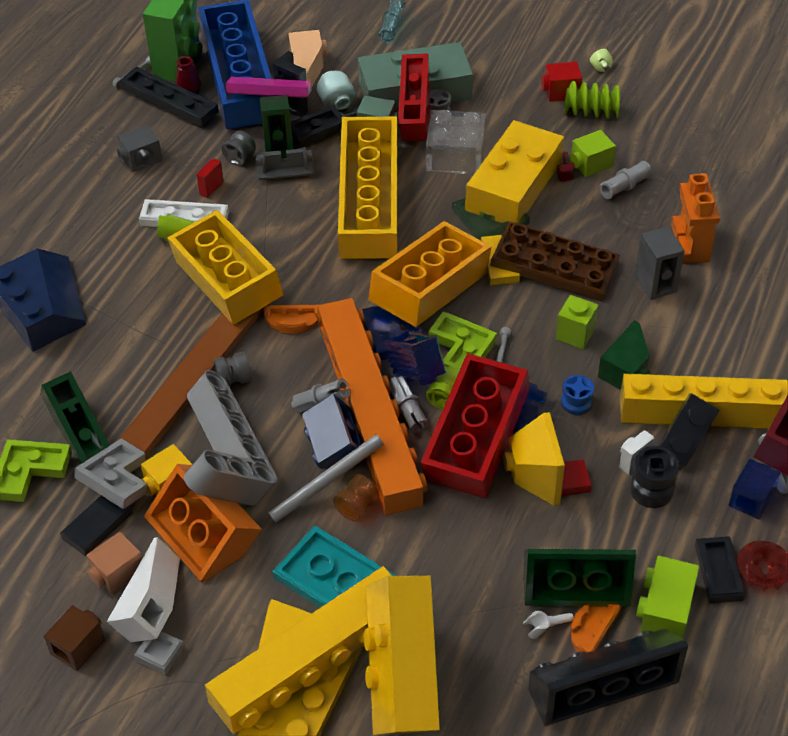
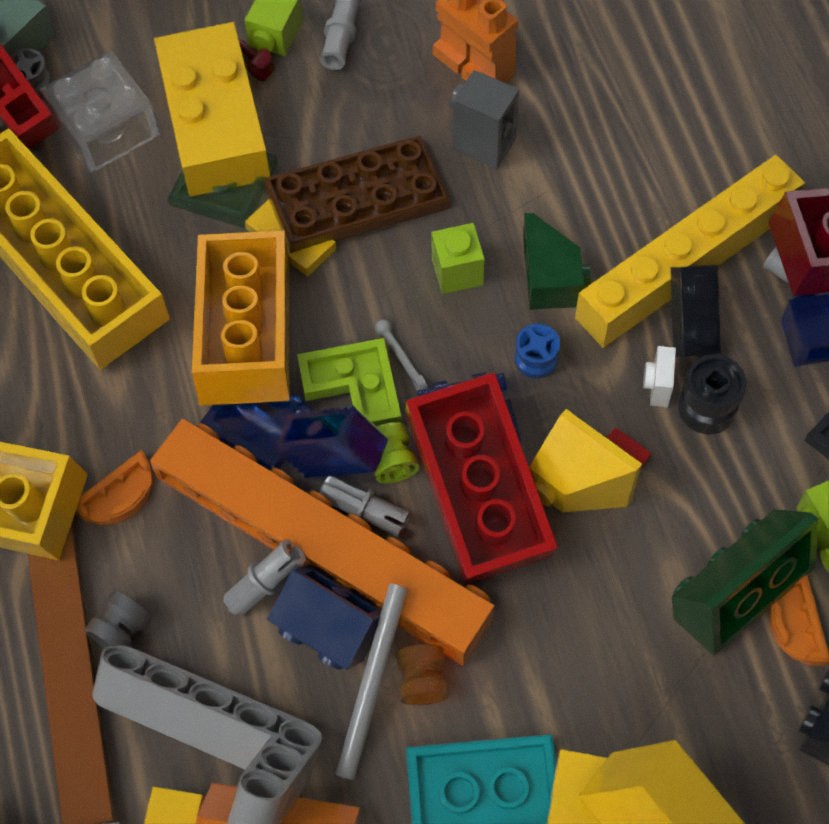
camera: 40 degrees left, 15 degrees up
(543, 622) = (752, 661): white hand -> none

